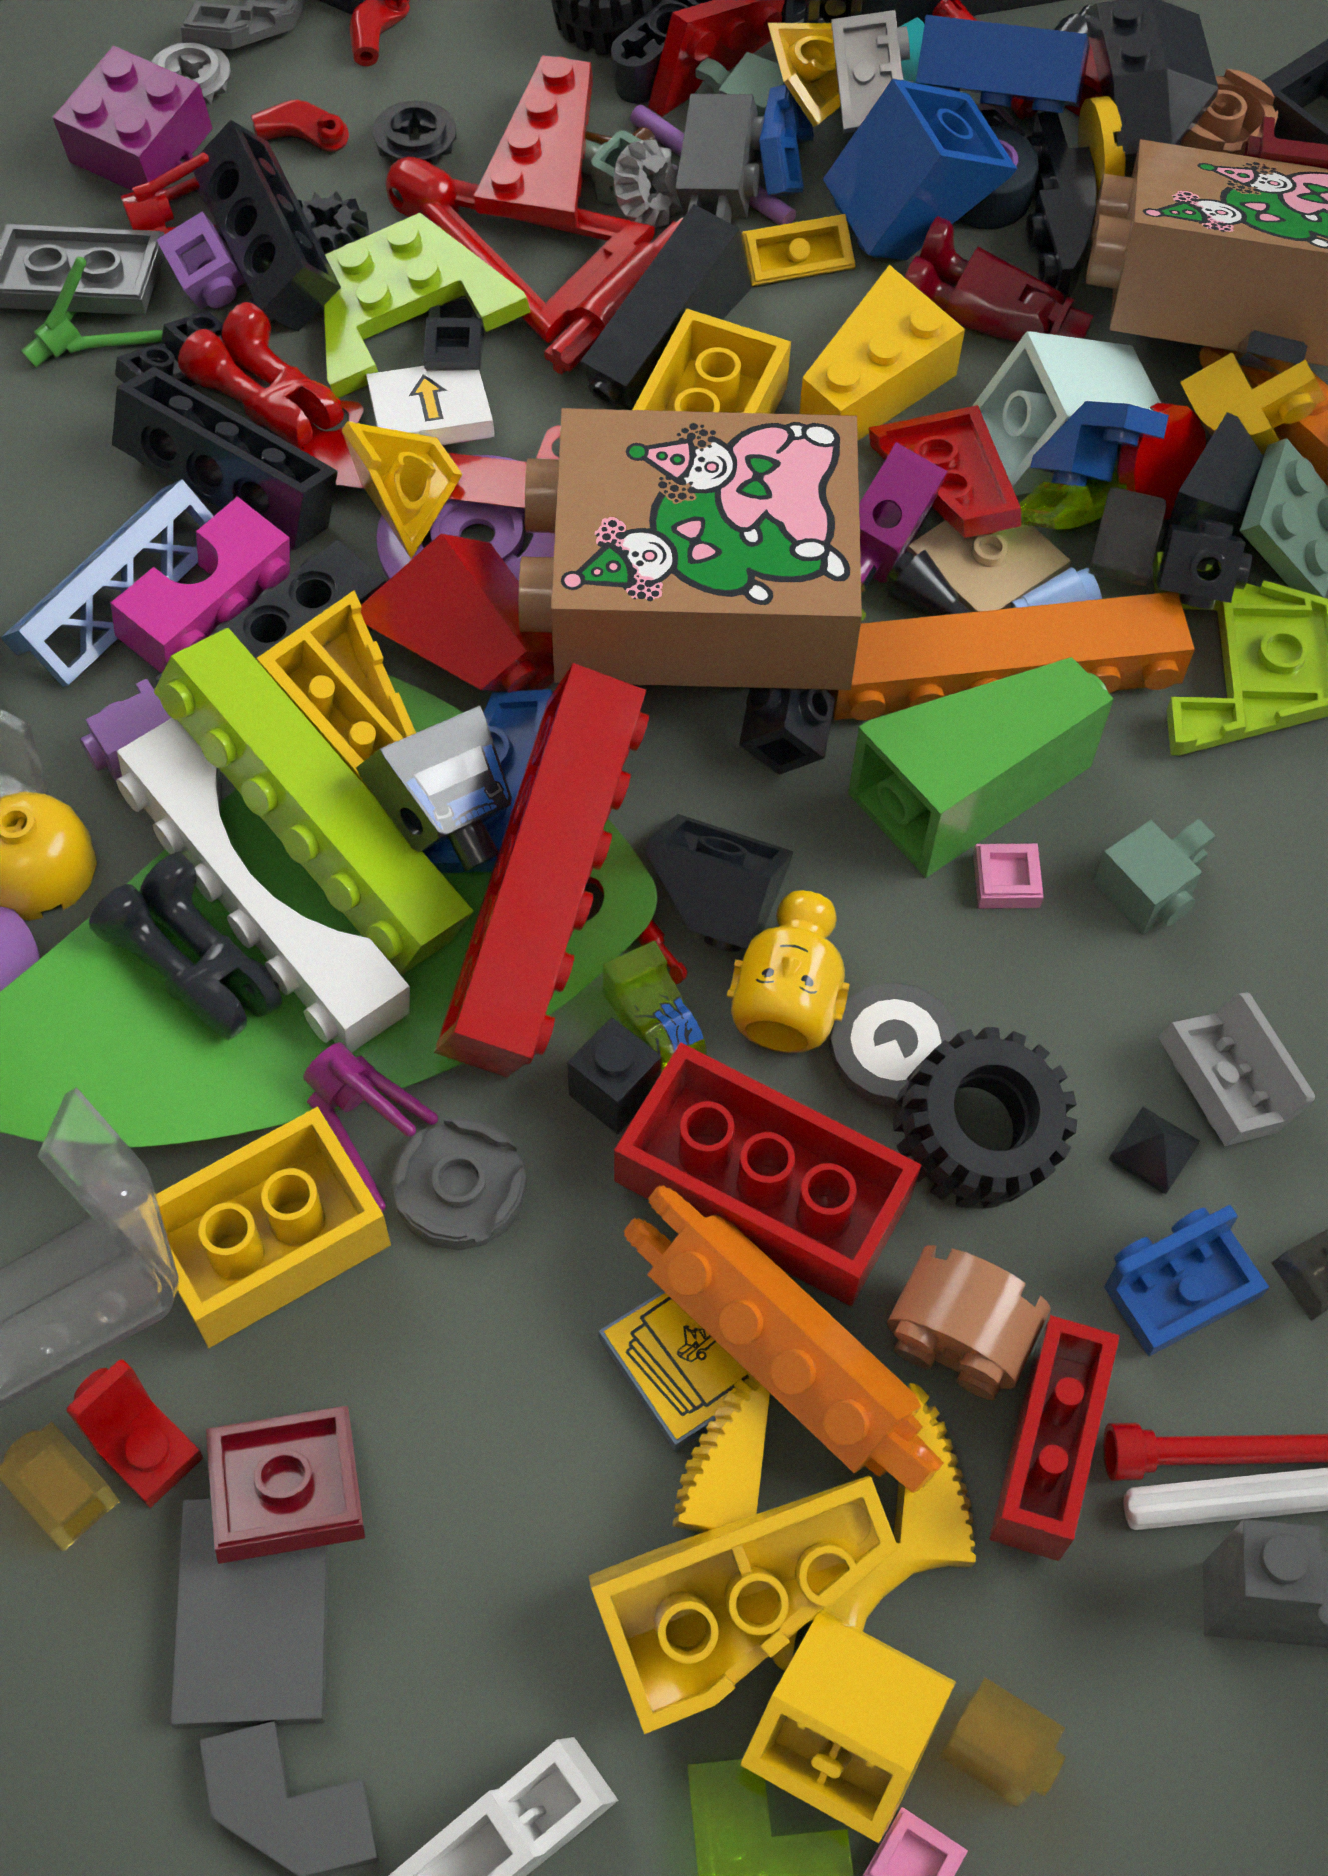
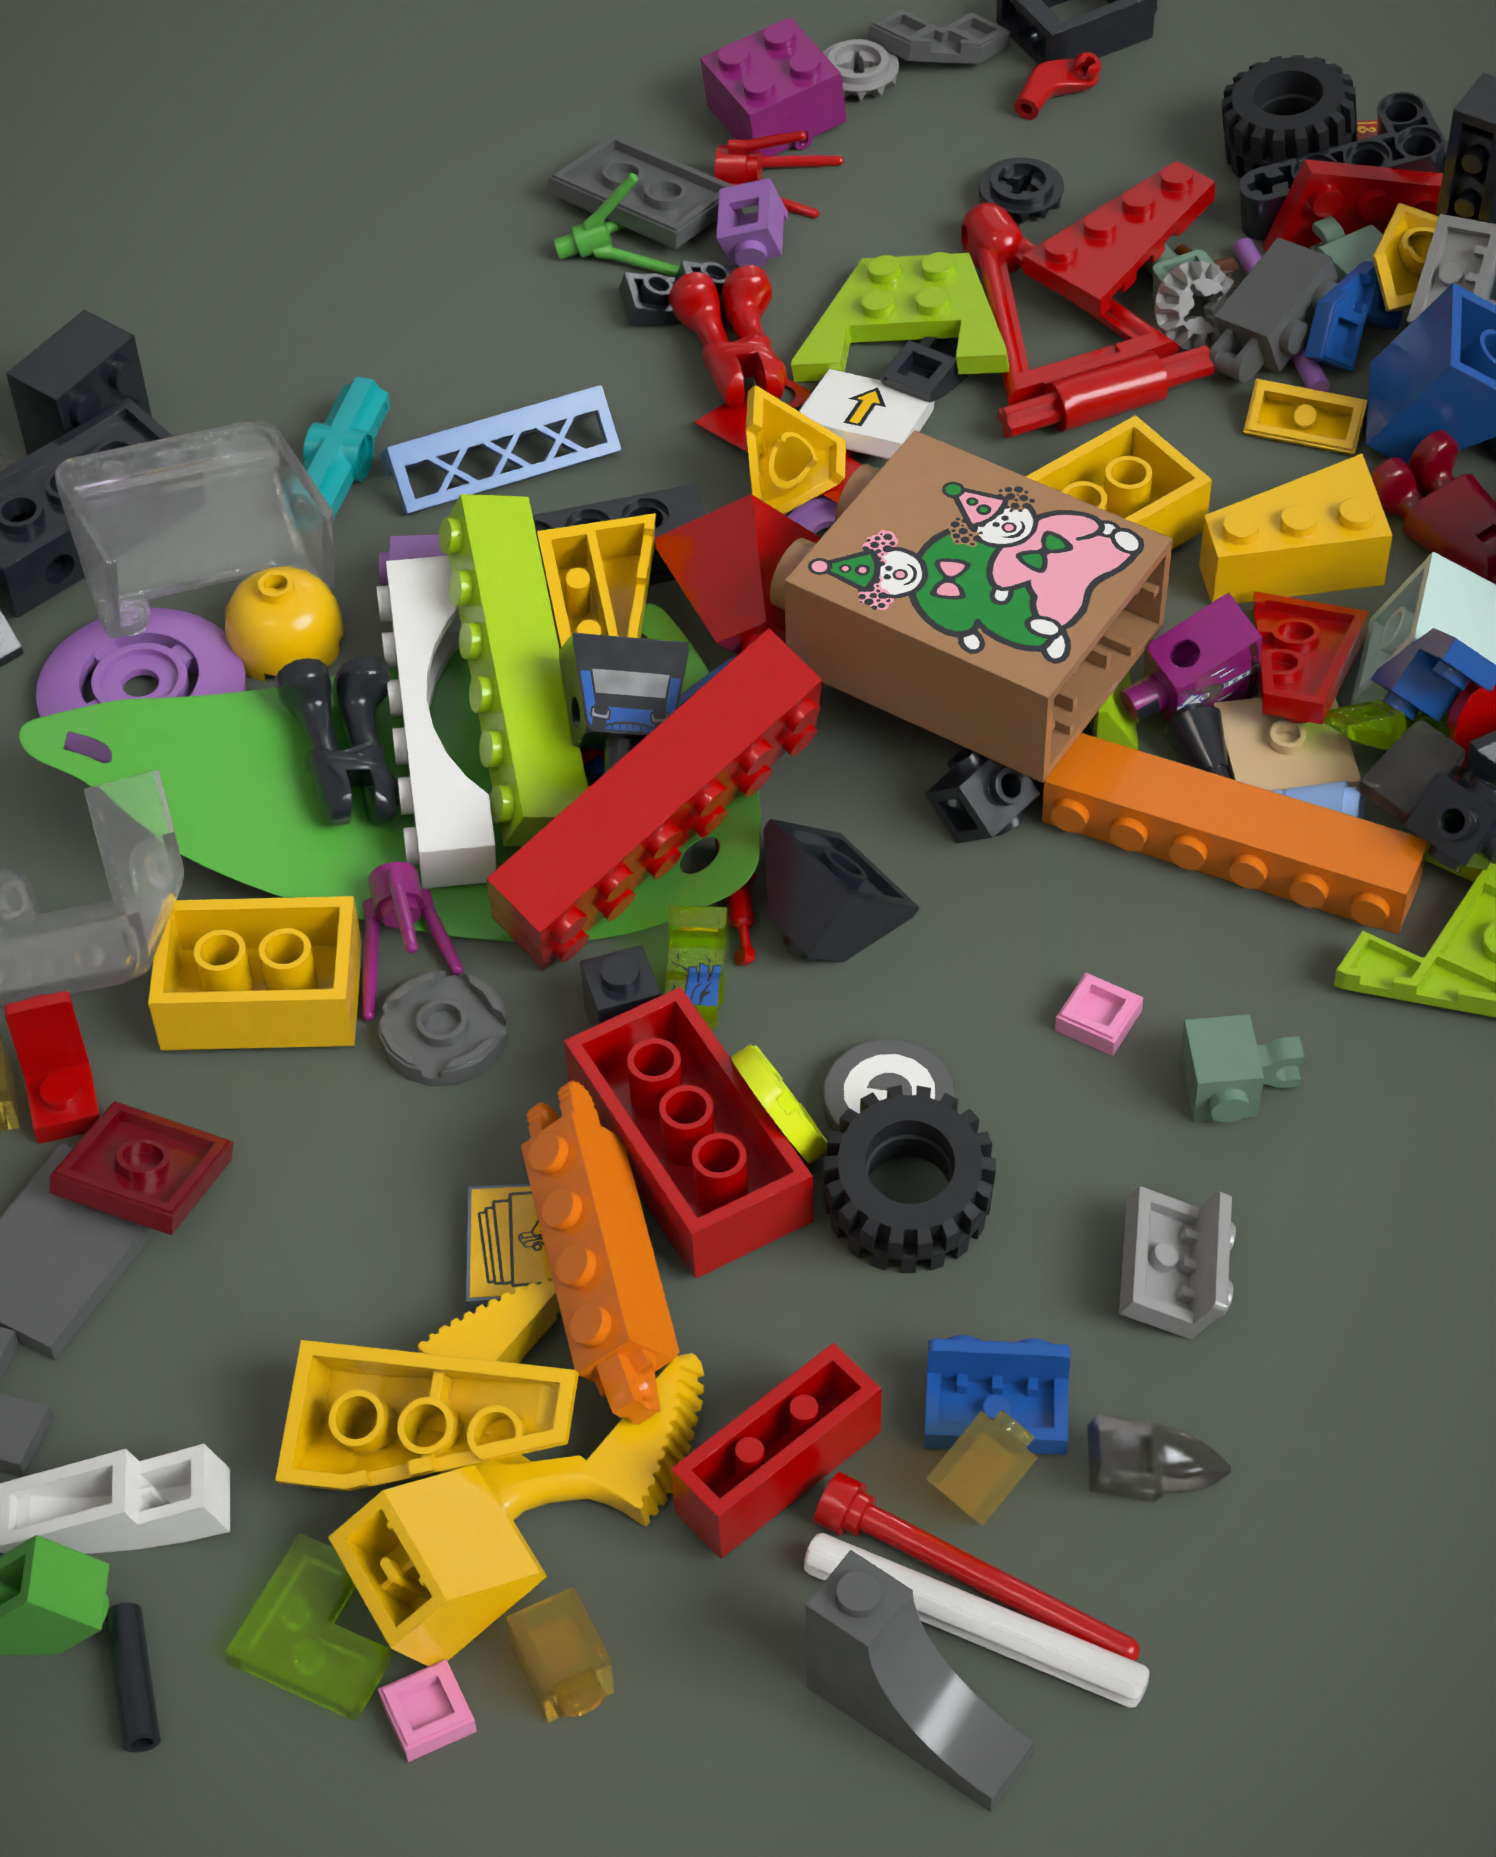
camera: 35 degrees right, 10 degrees down
(222, 454) = (652, 385): black brick -> none
(242, 557) = (610, 467): dark pink arch -> none
(265, 227) = (822, 214): black brick -> none
(303, 121) = (926, 141): red arm -> none
(349, 220) = (863, 238): black gear -> none
(695, 270) = (1173, 389): black slope -> none
(791, 978) = (828, 994): yellow piece -> none
(832, 1103) = (780, 1103): none -> neon yellow tile
(968, 1320) = (764, 1317): nougat brick -> none
(976, 758) = (1131, 895): bright green slope -> none
(1154, 1150) = (1061, 1294): black slope -> none
(1230, 1353) = (984, 1464): none -> clear yellow brick

